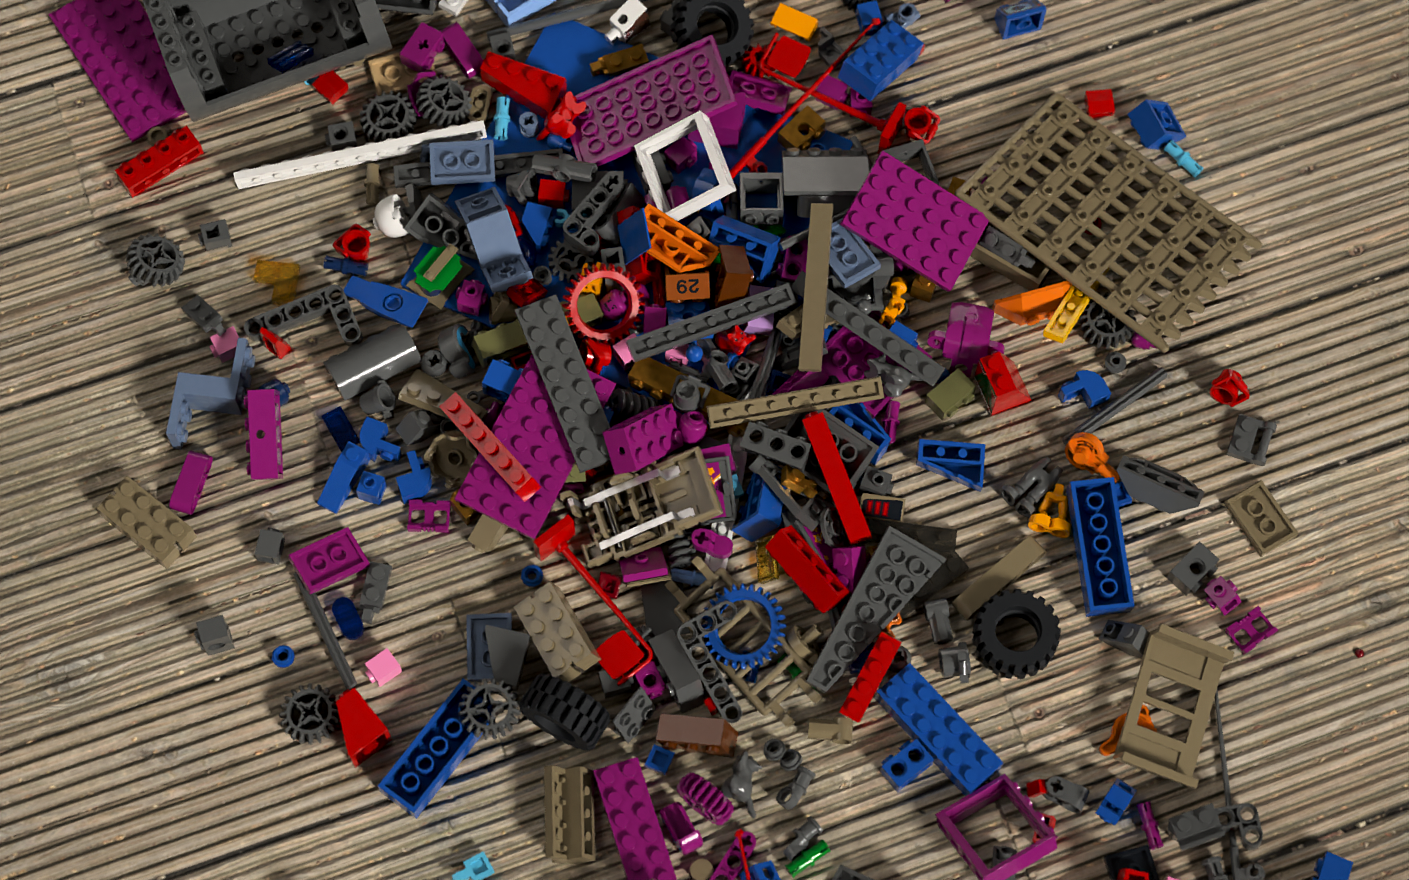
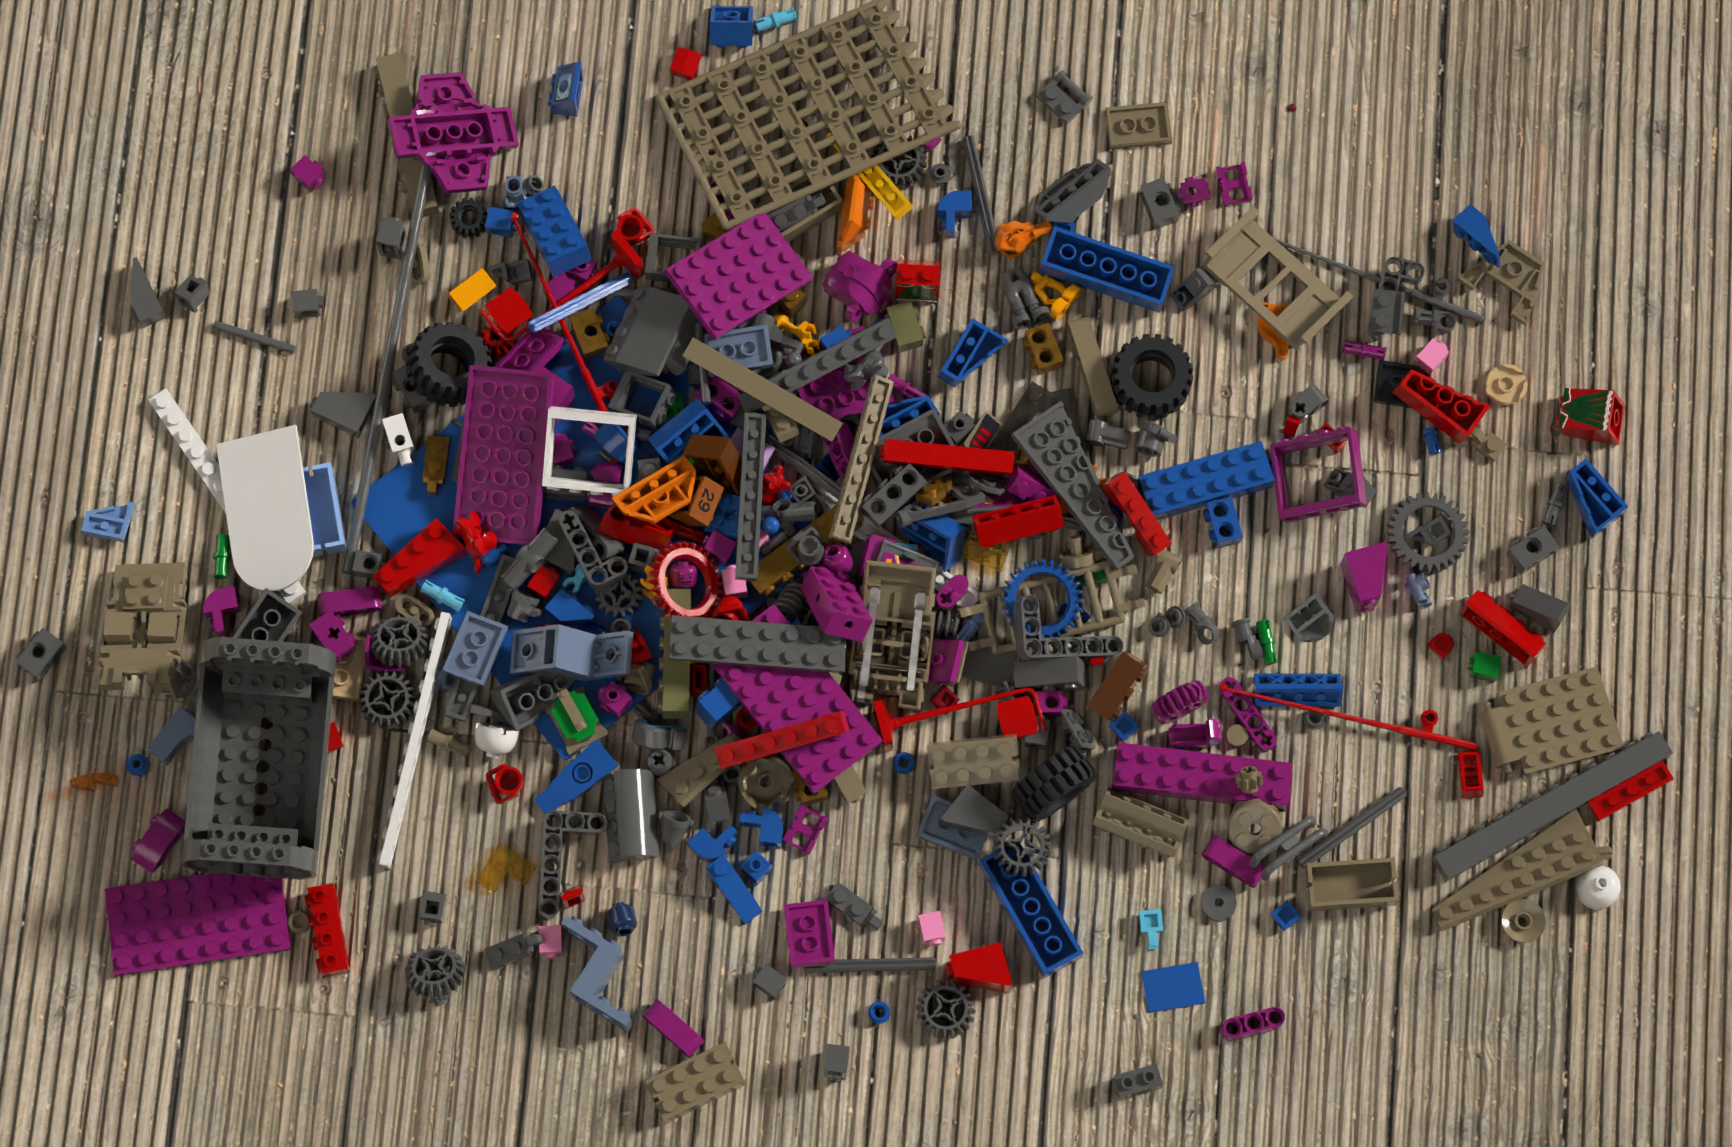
camera: 65 degrees left, 5 degrees up
(265, 452) = (666, 938): magenta brick -> none
(290, 56) = (285, 760): clear blue tile -> none
(340, 427) = (683, 872): clear blue tile -> none
(341, 129) = (387, 741): dark grey brick -> none
(345, 265) = (521, 801): dark blue pin -> none
(347, 618) = (869, 941): clear blue tile -> none
(529, 123) = (465, 568): sand blue bush -> none
(634, 236) = (636, 524): blue window -> none
(740, 783) = (1177, 668): dark grey animal -> none
(825, 109) = (580, 302): none -> axle
(922, 28) = (533, 185): none -> dark grey plate
(997, 528) = (1046, 348): none -> pearl gold brick
(1115, 802) = (1333, 367): blue brick -> none
(1226, 388) = (1010, 92): red piece -> none

